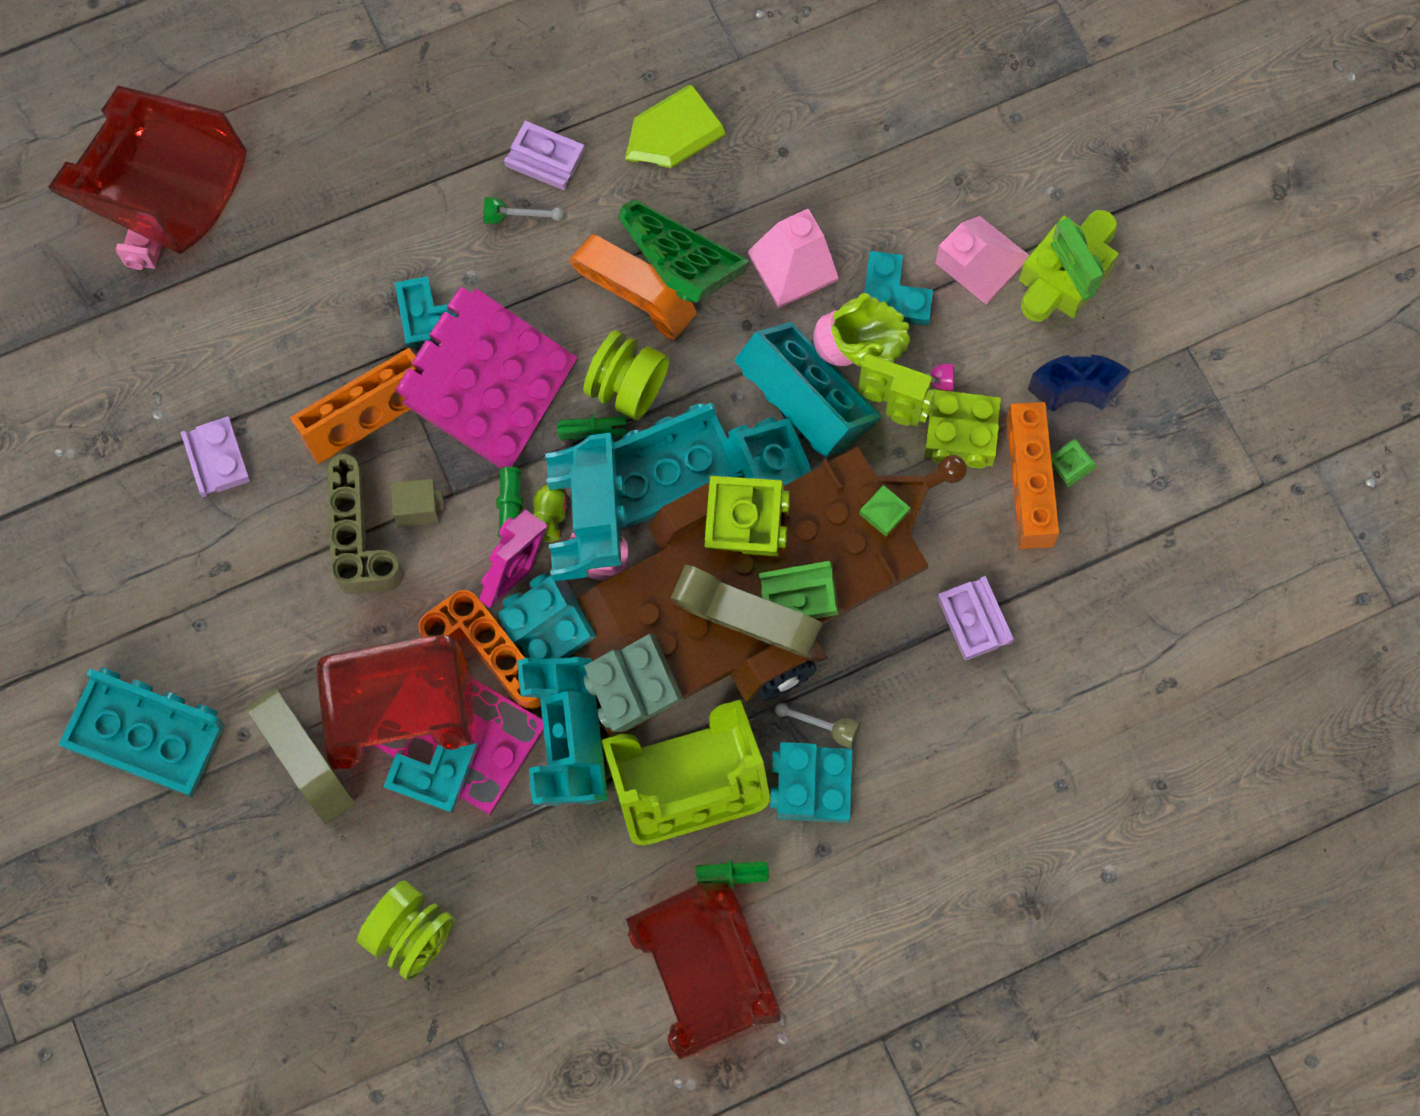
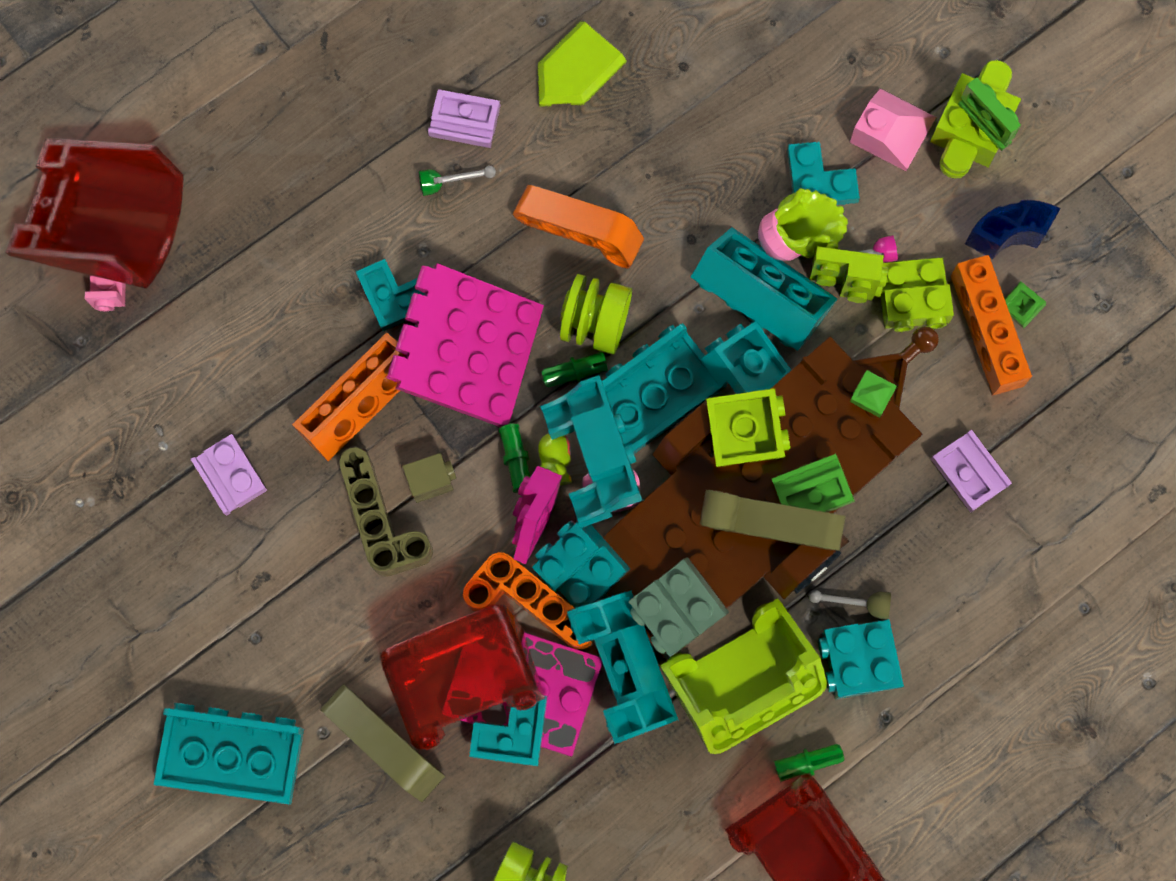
camera: 10 degrees left, 5 degrees up
(680, 255) = (624, 191): green plate -> none
(794, 259) = (720, 167): bright pink slope -> none

